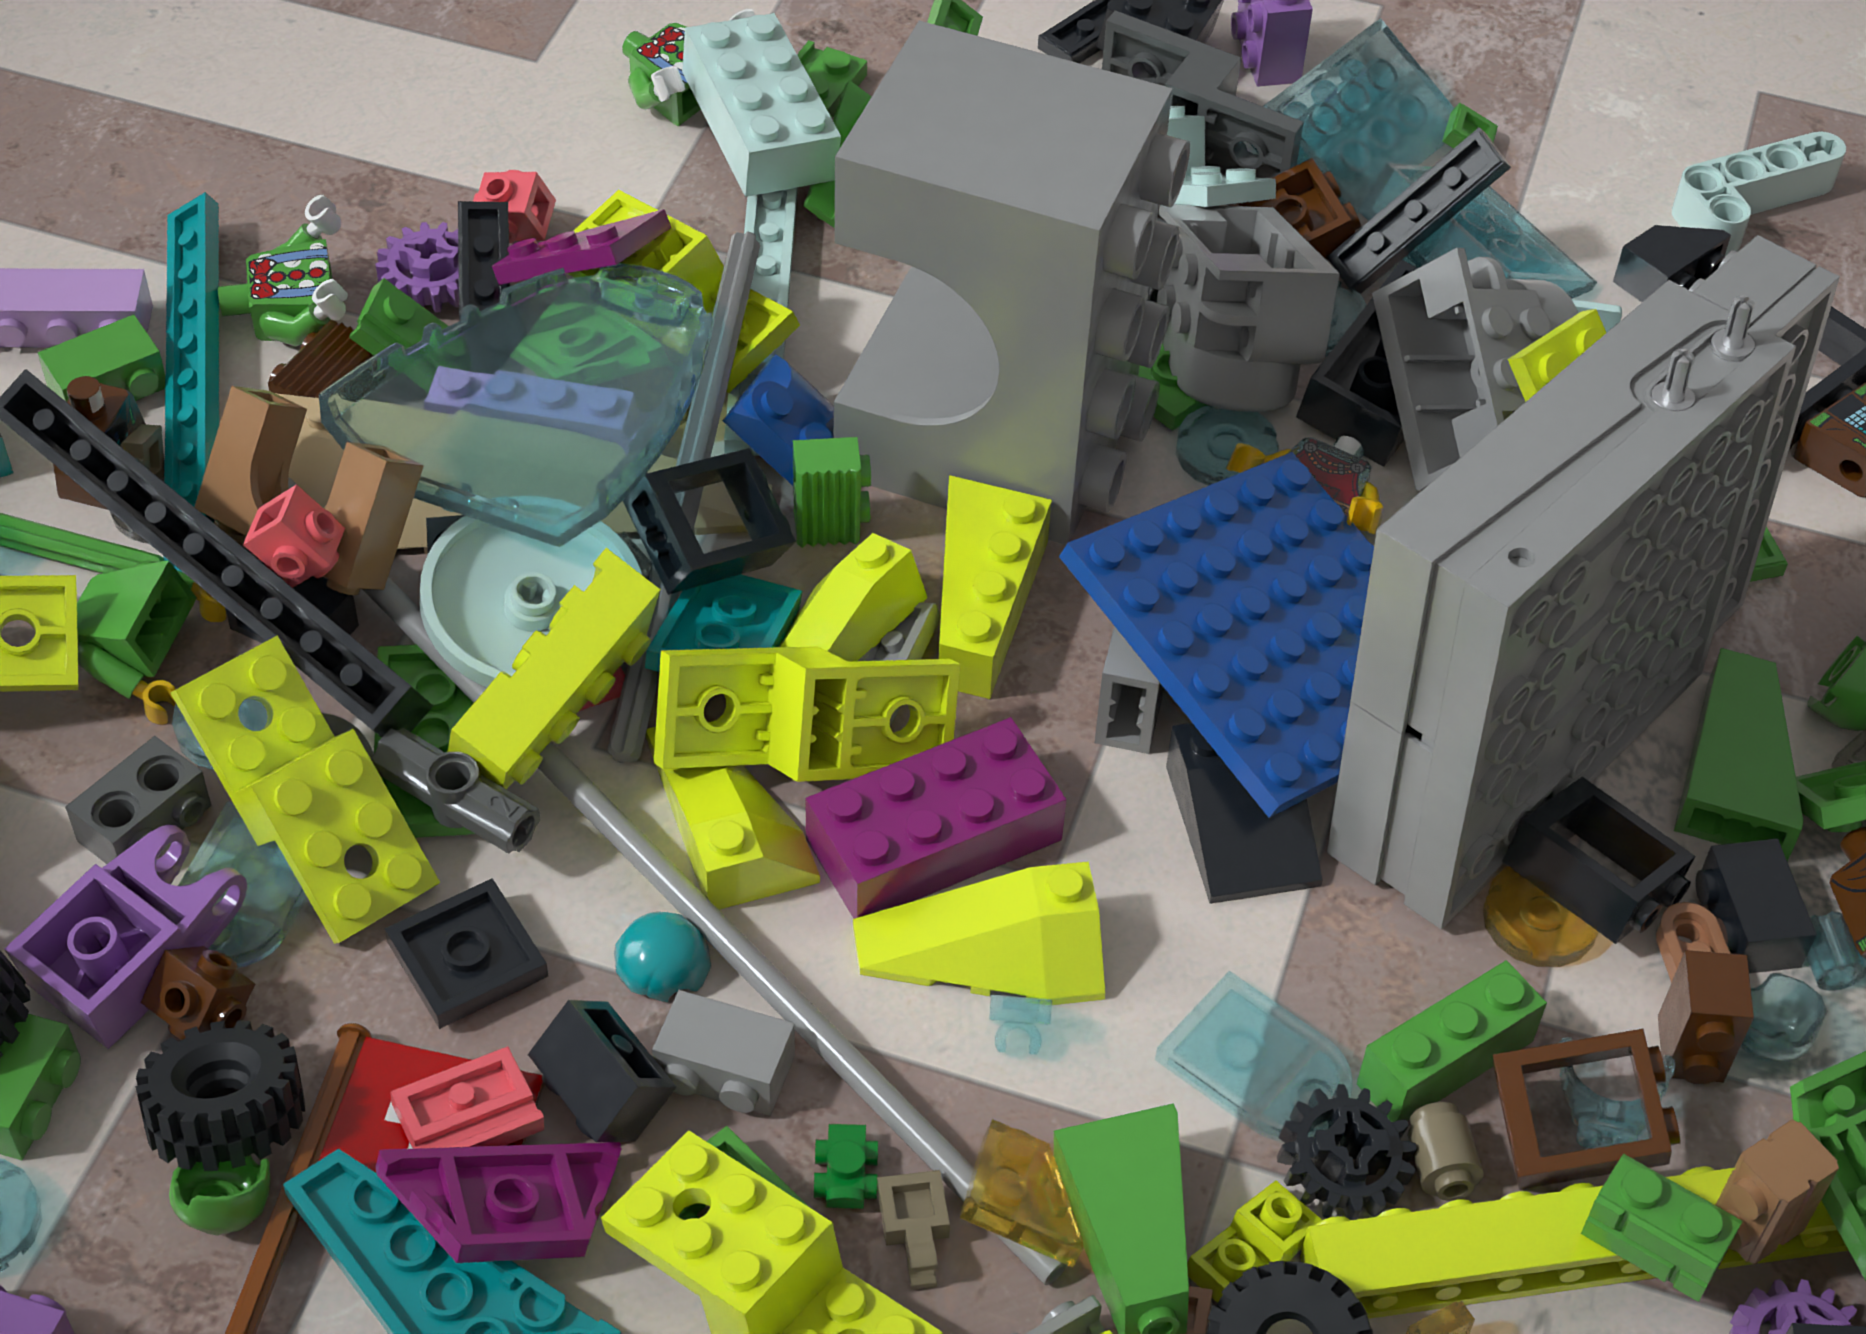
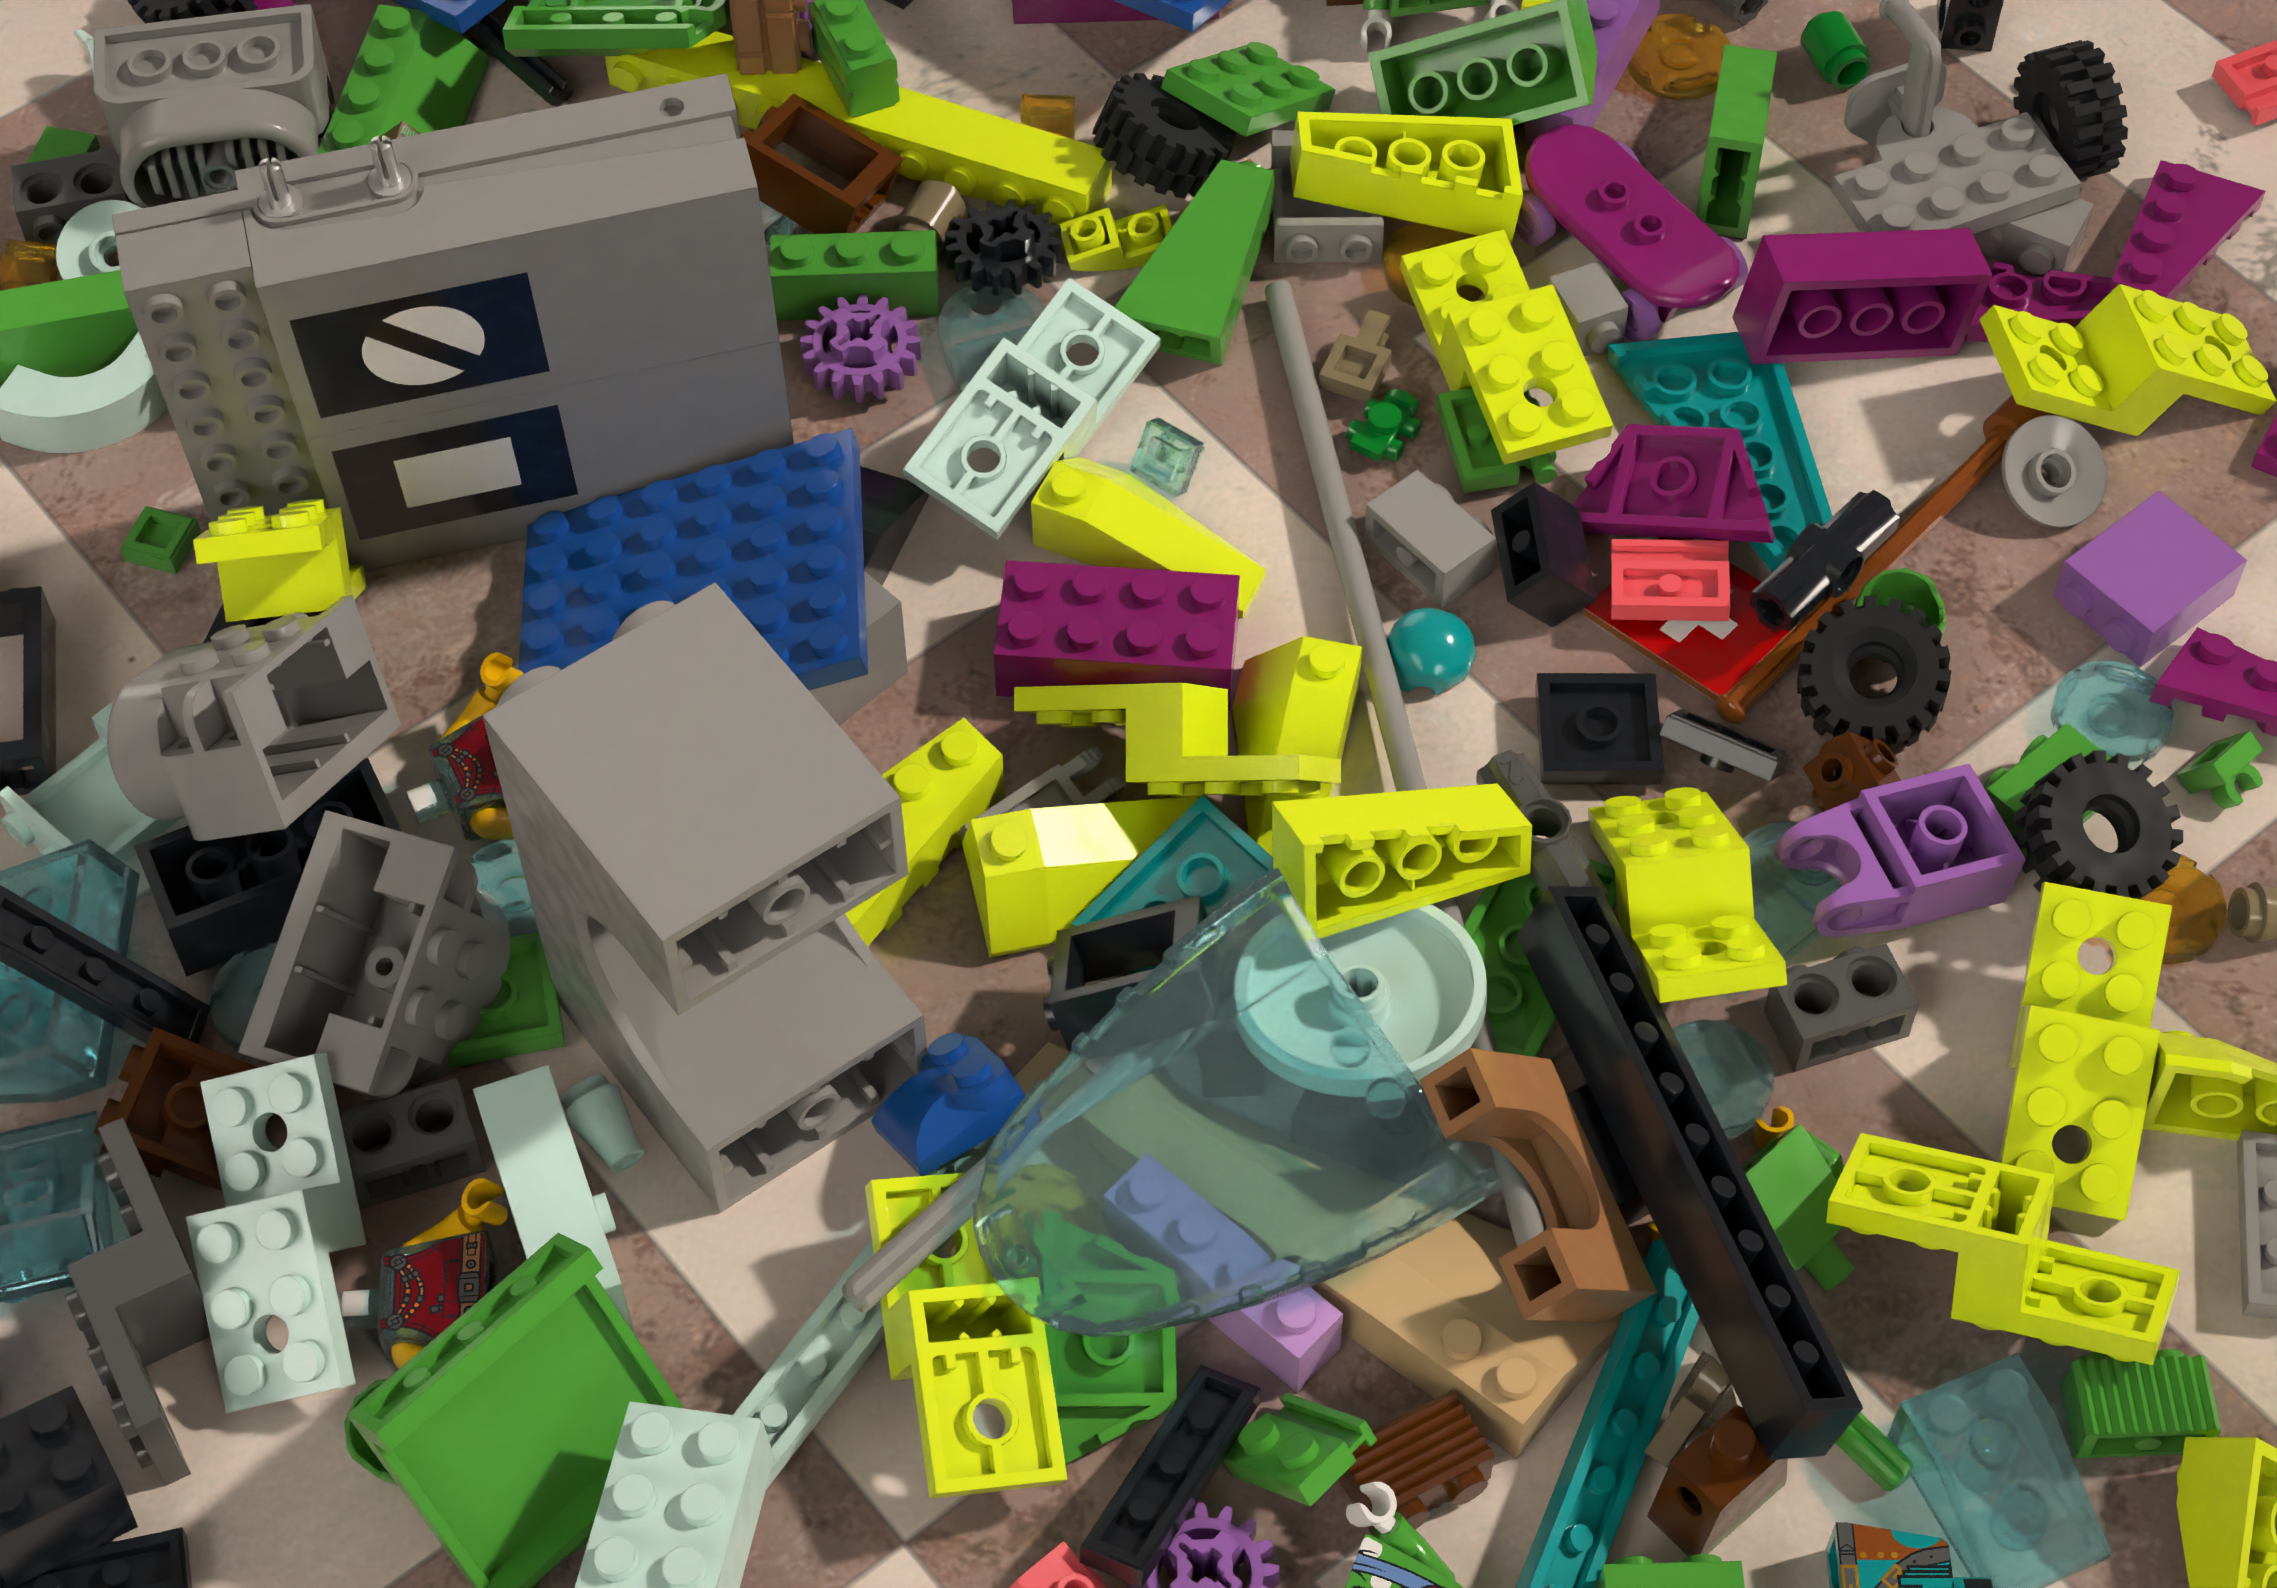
camera: 145 degrees left, 5 degrees up
(295, 537) = (1590, 1076): coral brick -> none
(309, 1156) = (1824, 561): none -> black piece
(341, 986) = (1724, 747): none -> plate
(581, 250) = (1050, 1384): magenta wing -> none
(829, 491) = (977, 985): bright green brick -> none
(1022, 1194) = (1270, 332): clear yellow wing -> none
(1162, 961) = (1031, 408): none -> light aqua bracket
(1351, 981) = (860, 348): none -> medium lavender gear

